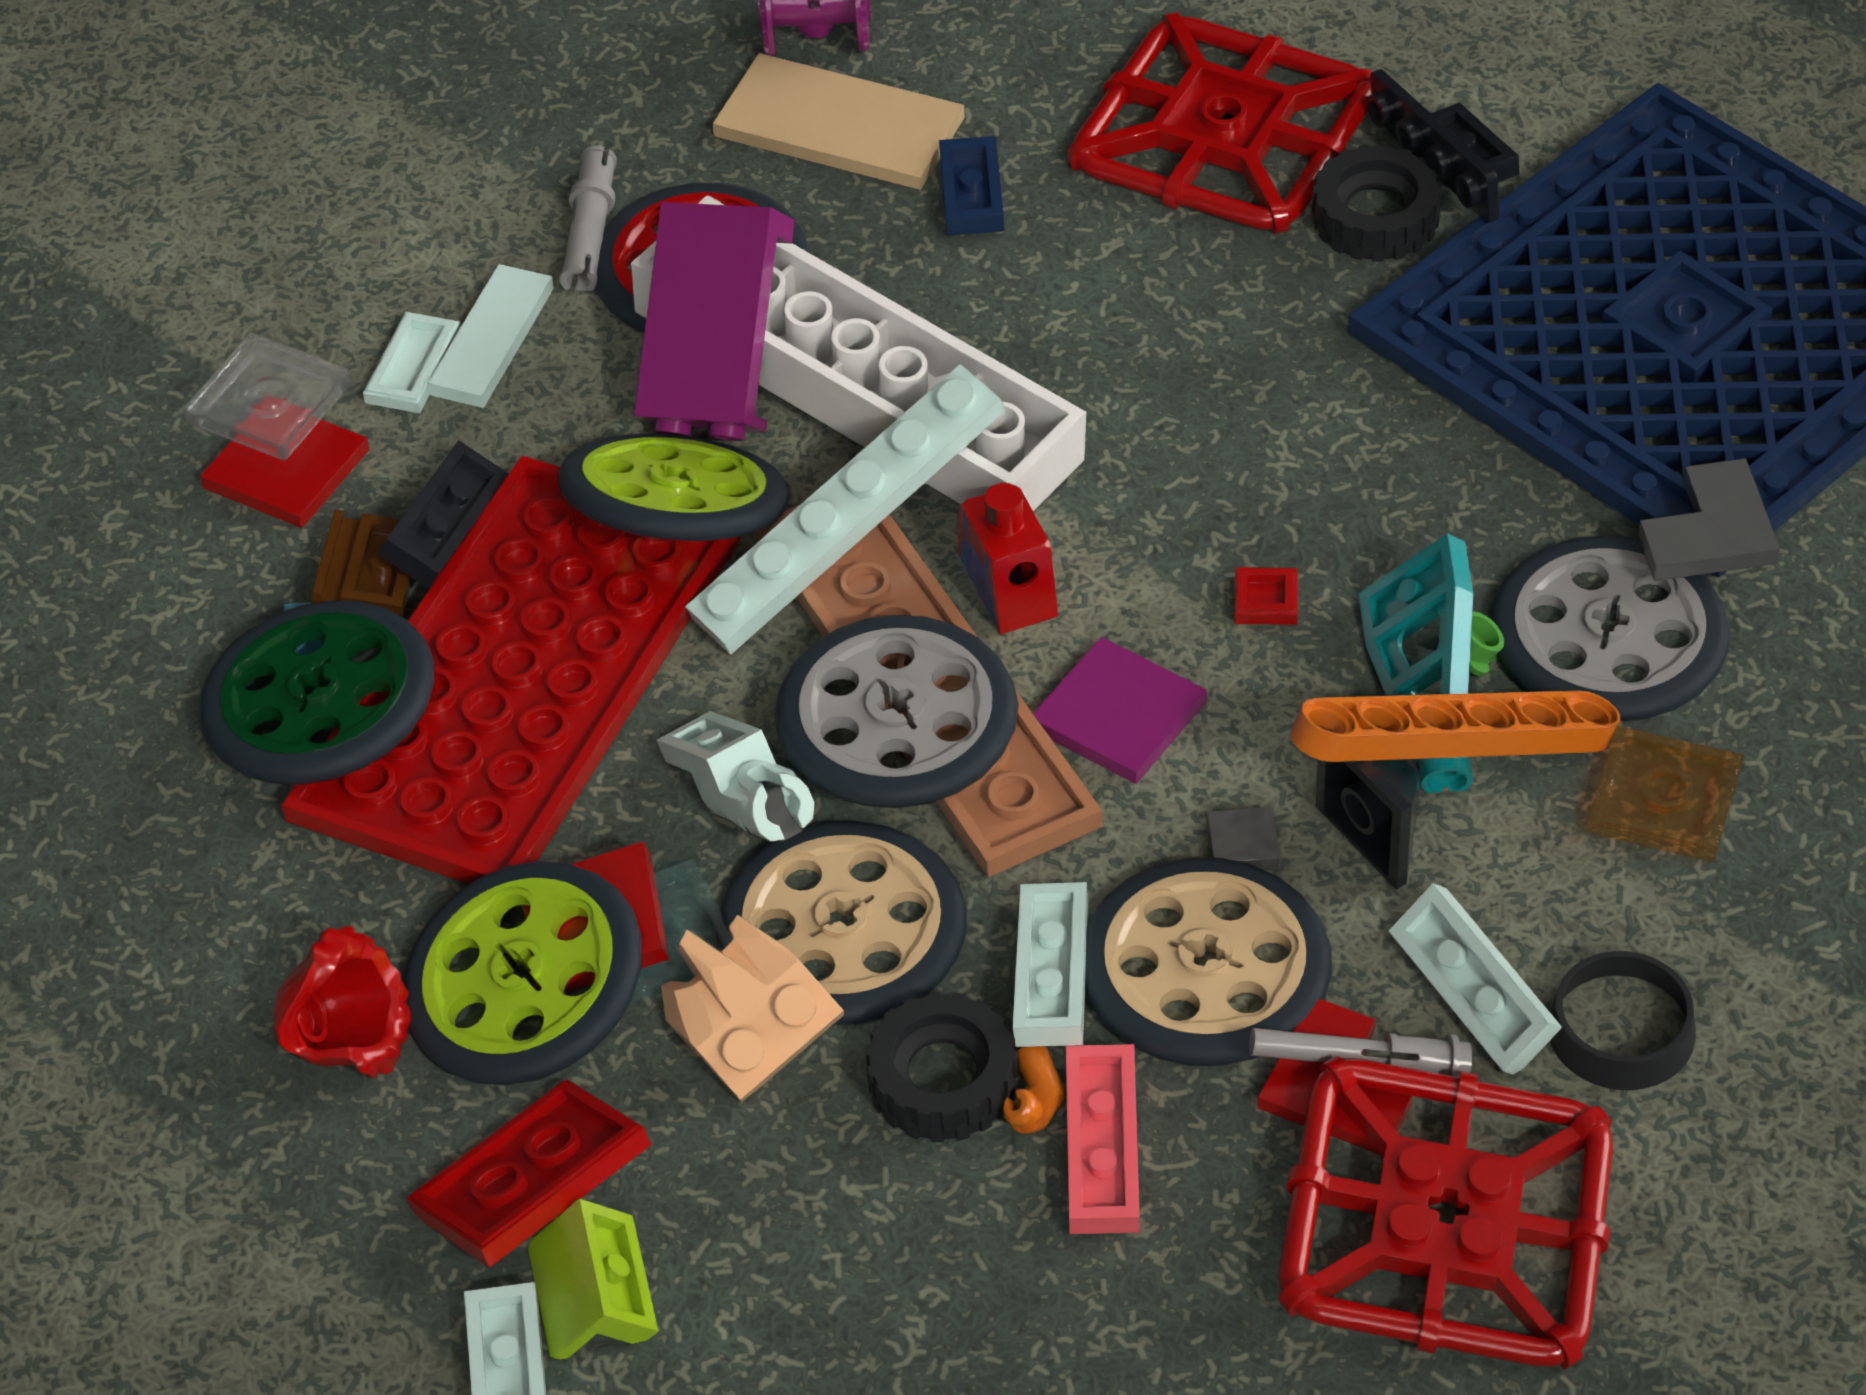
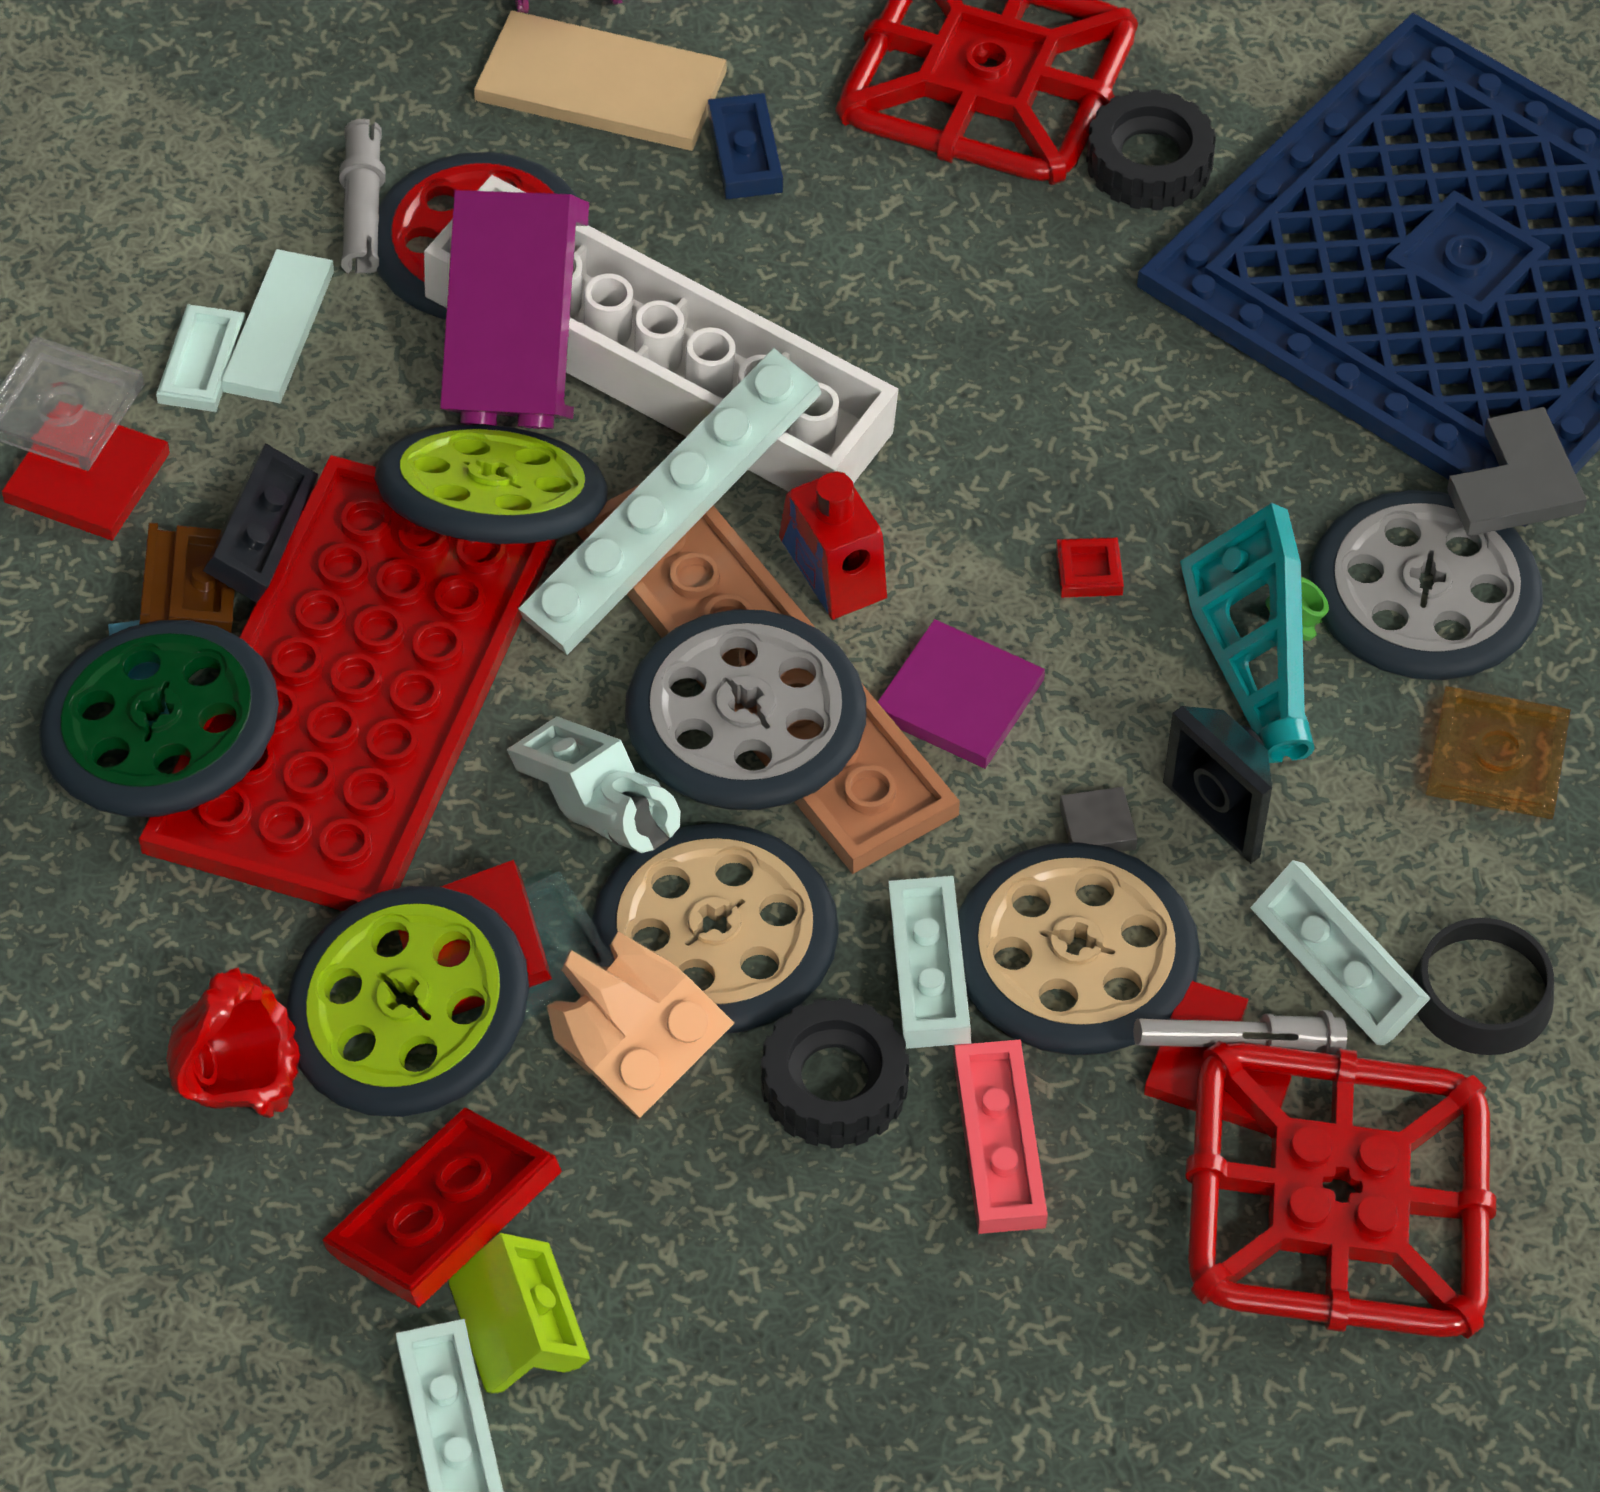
camera: 10 degrees left, 5 degrees up
(1042, 1093) = (934, 1092): orange arm -> none
(1452, 142) = (1218, 81): black bracket -> none
(1453, 725) = (1297, 700): orange beam -> none

